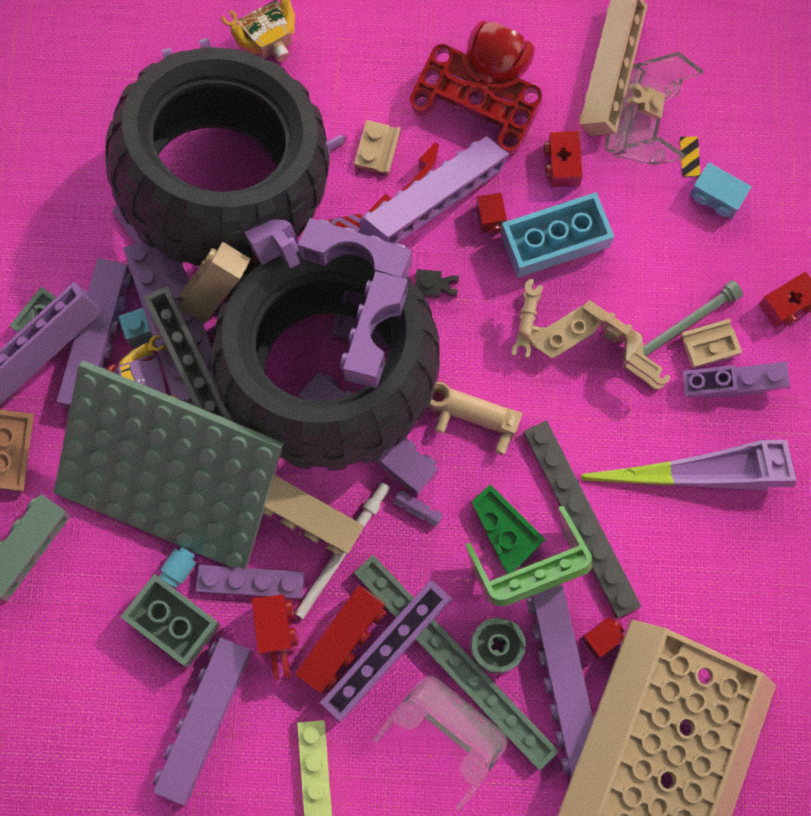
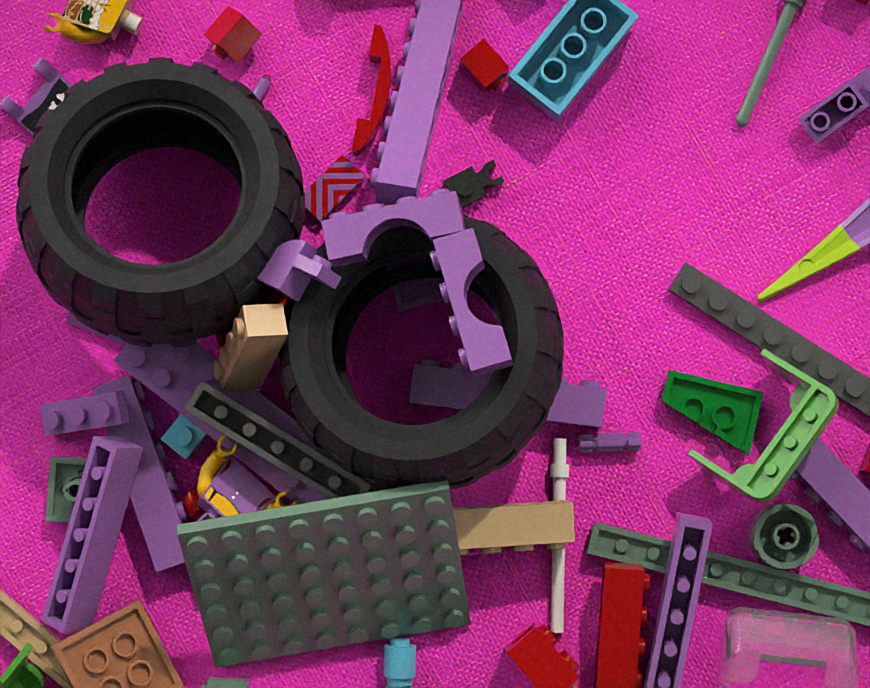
camera: 30 degrees left, 10 degrees up
(81, 270) = (84, 413): none -> medium lavender plate
(250, 581) = (484, 629): medium lavender plate -> none
(338, 96) = (232, 35): none -> red brick
(377, 147) = (310, 66): tan plate -> none
(475, 411) = (611, 299): tan piece -> none
(577, 327) = (657, 143): tan piece -> none
(711, 344) = (808, 67): tan plate -> none

